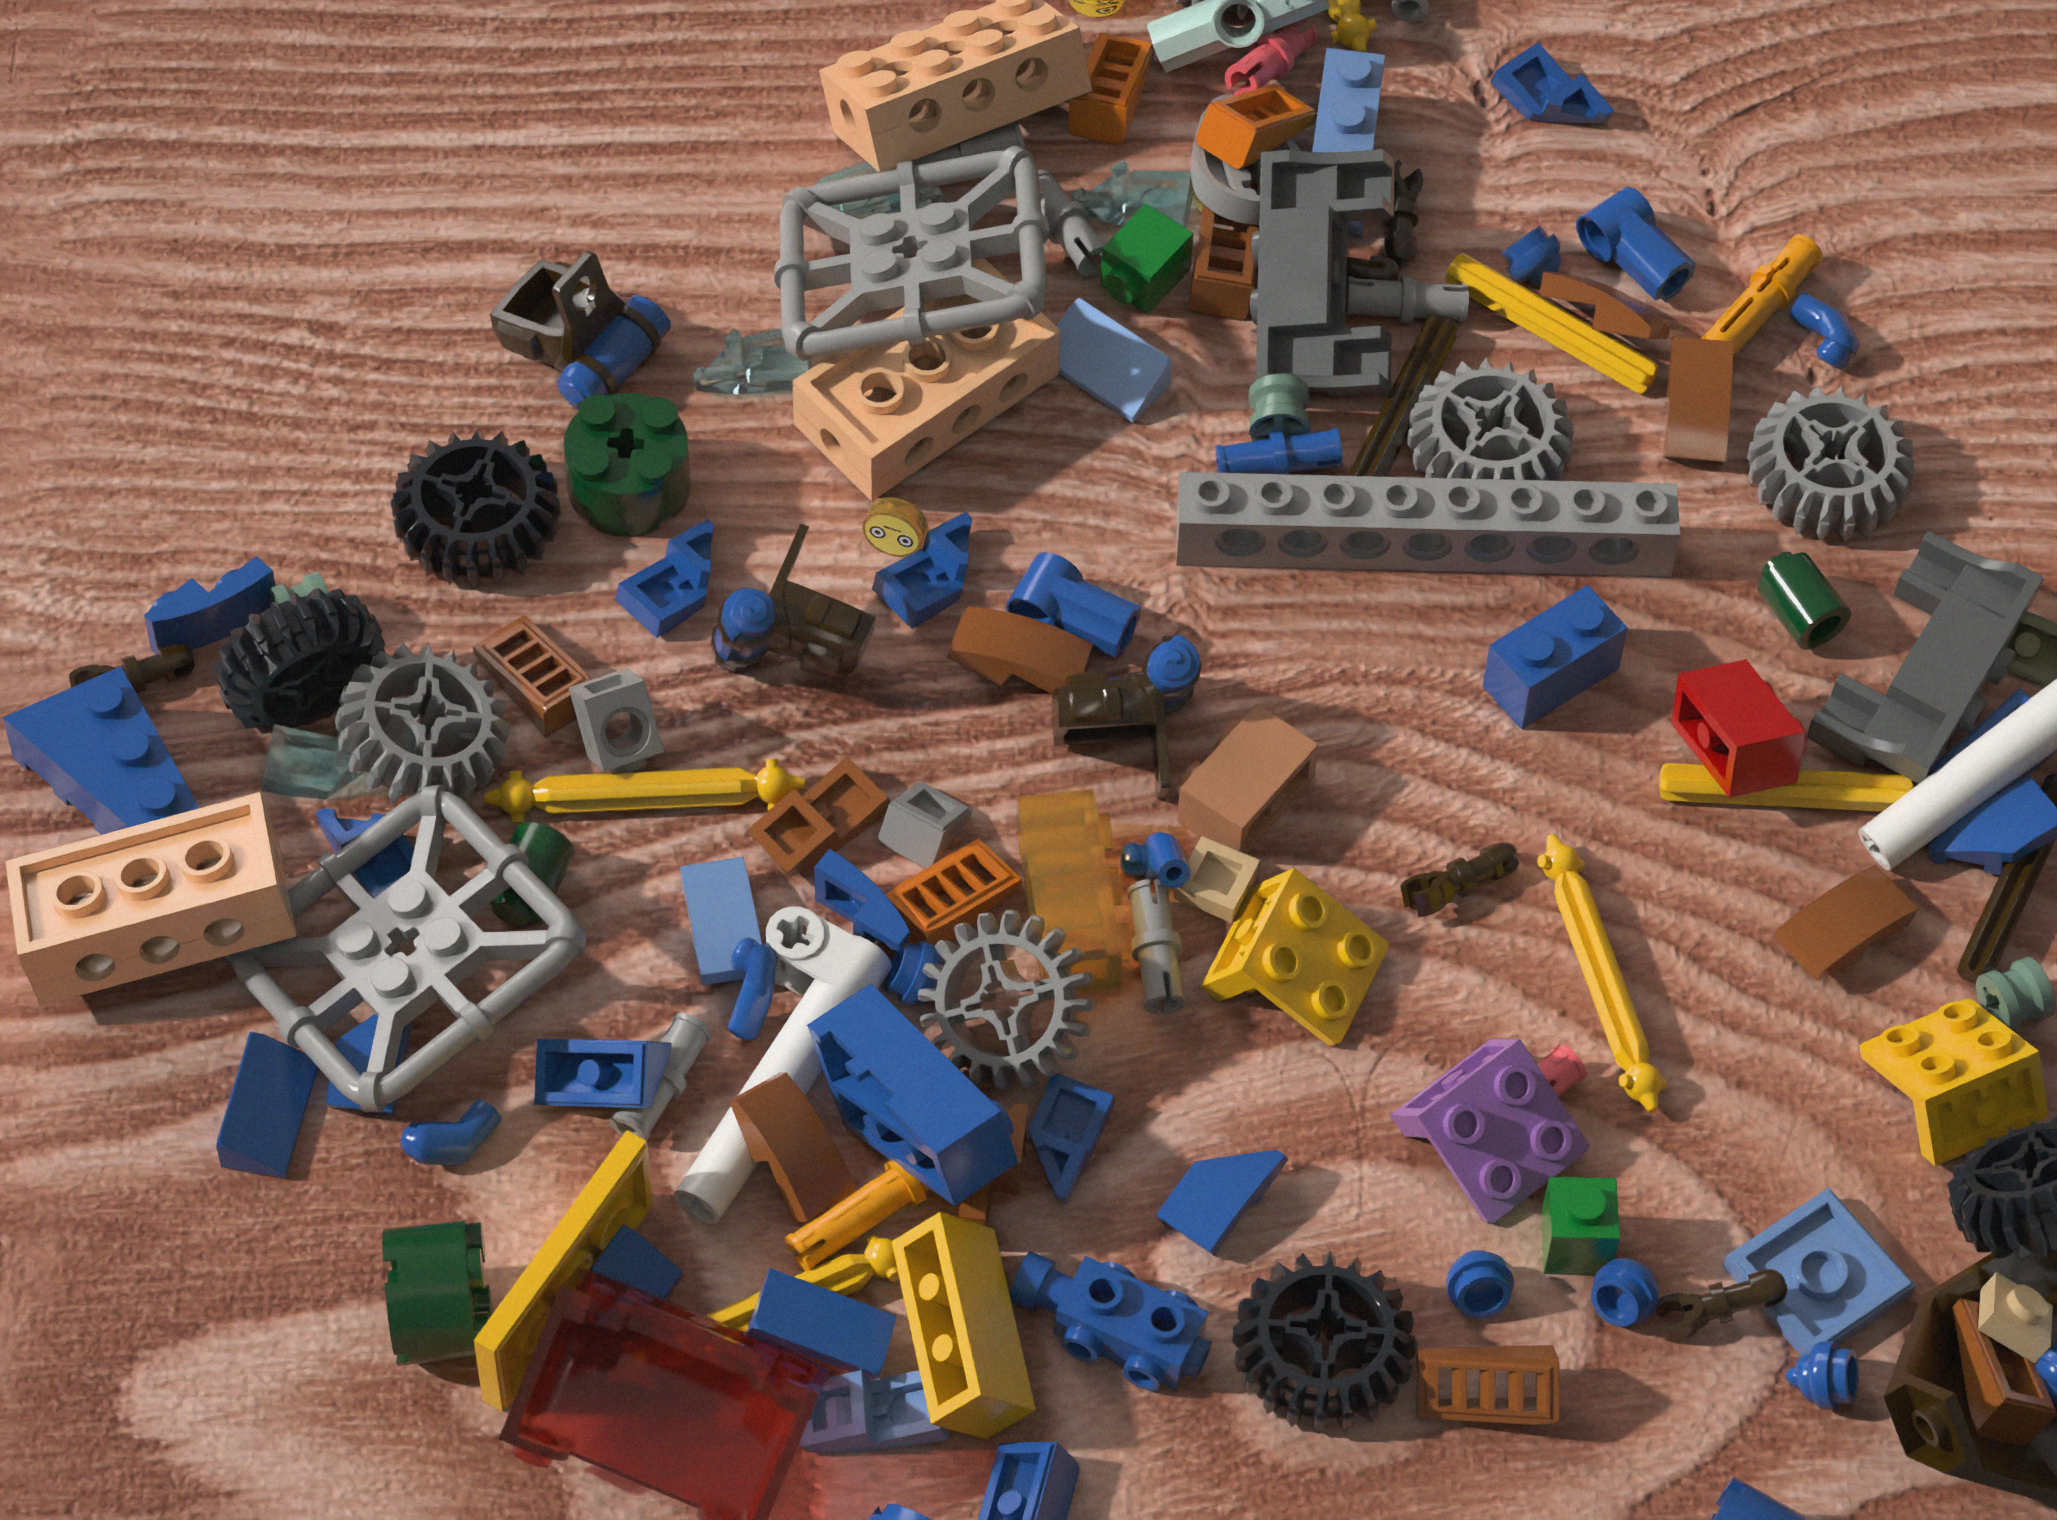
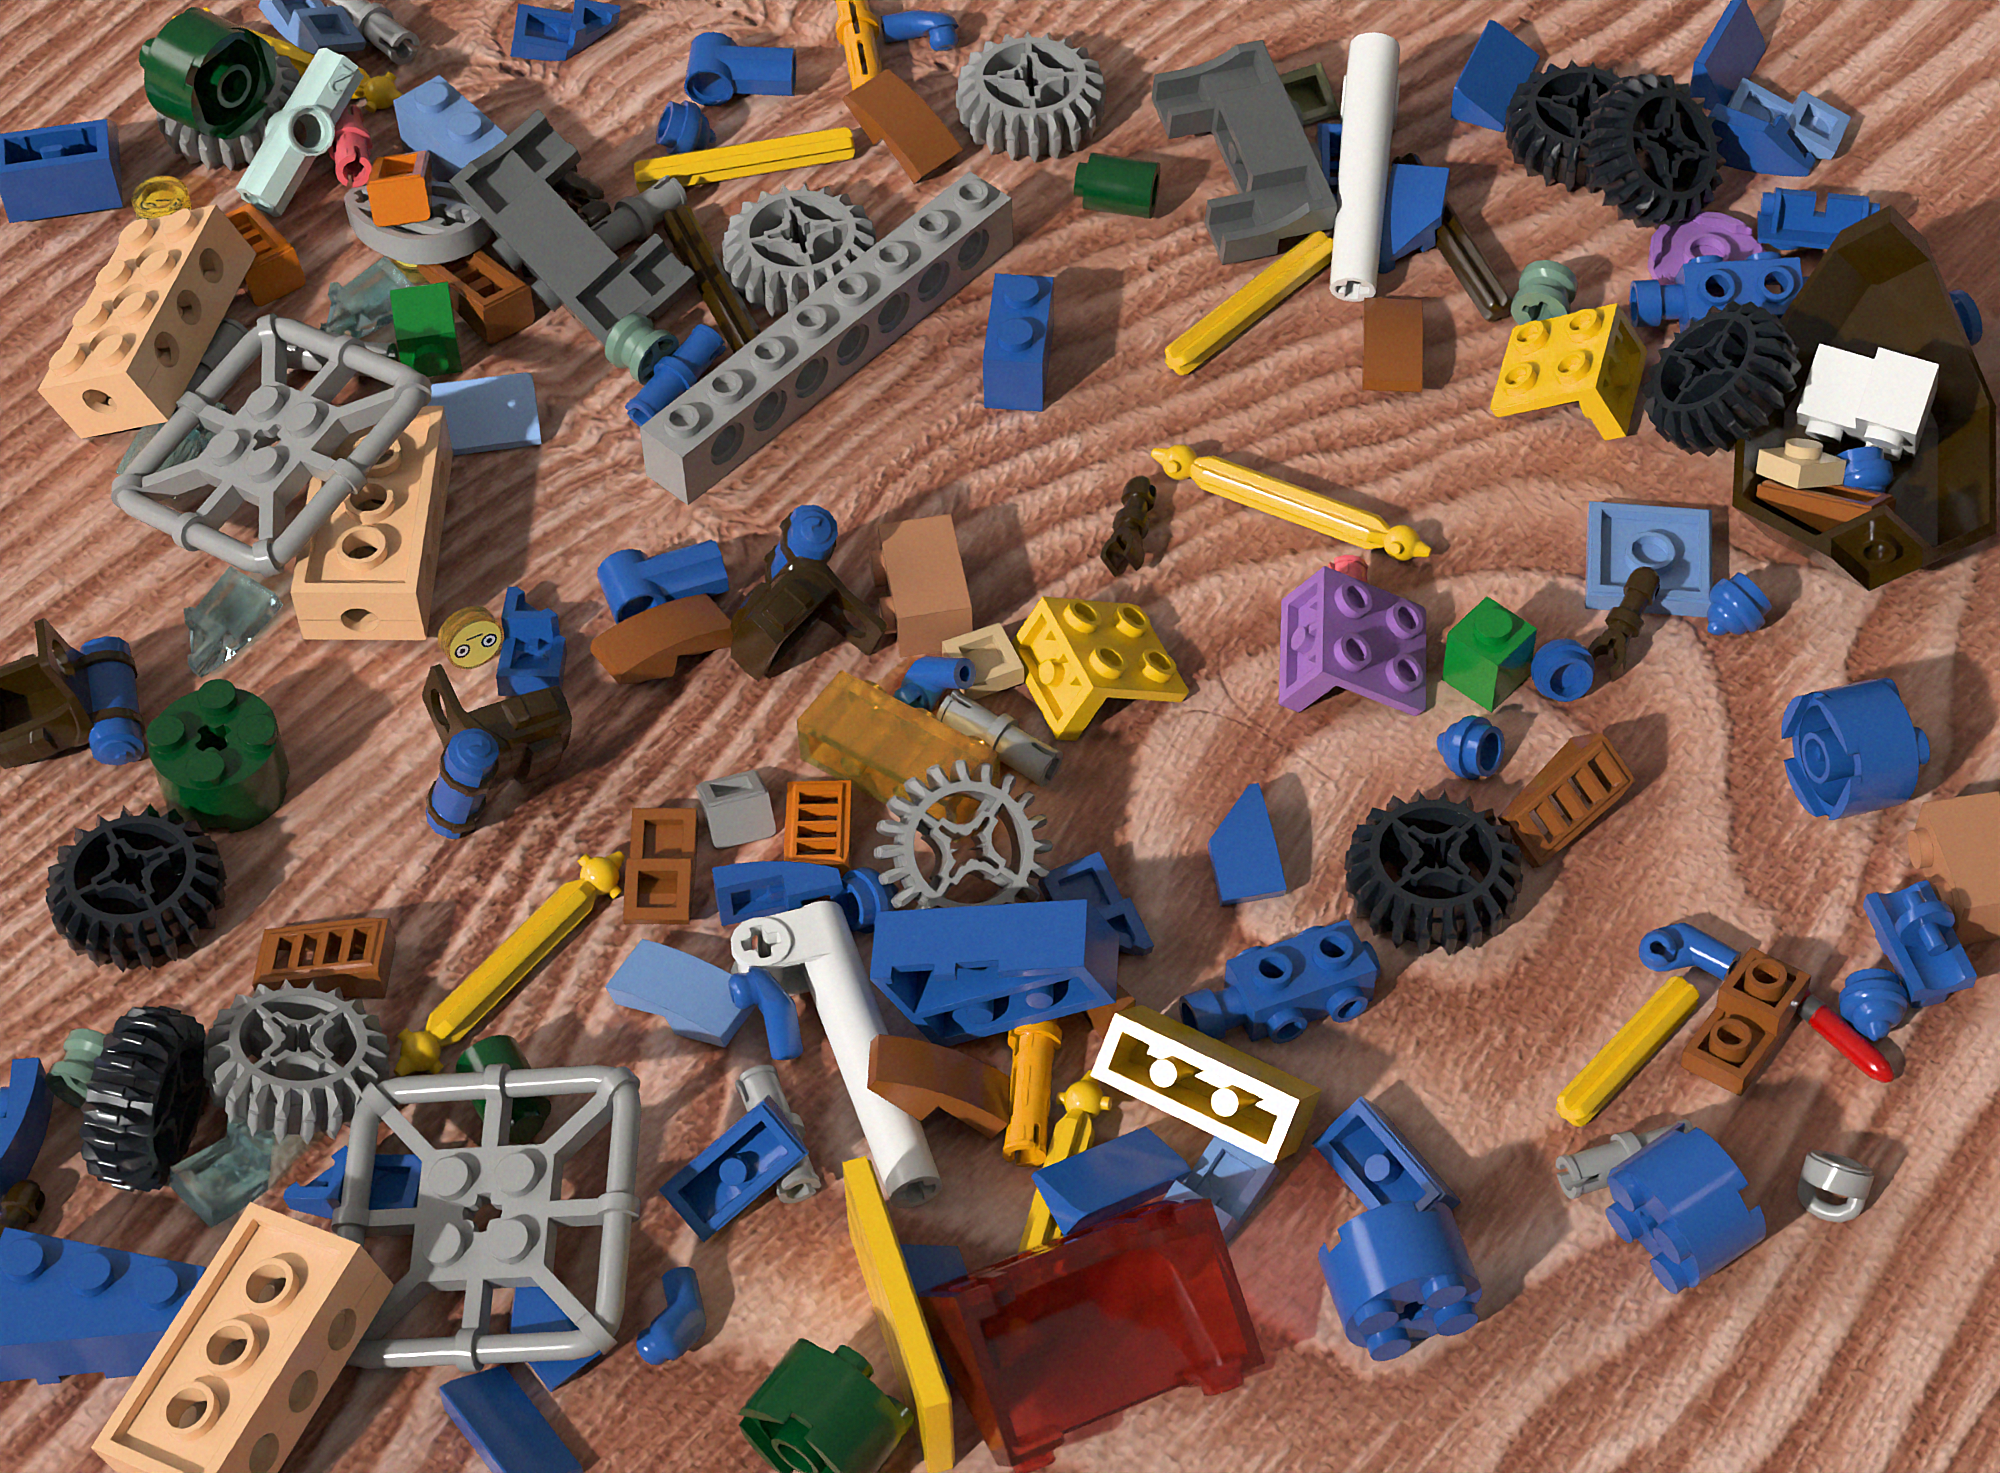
camera: 45 degrees left, 5 degrees down
(598, 702) = (440, 927): light grey brick -> none
(673, 586) = (351, 813): blue slope -> none
(1614, 309) = (786, 114): dark orange slope -> none
(1738, 728) = (1190, 282): red brick -> none

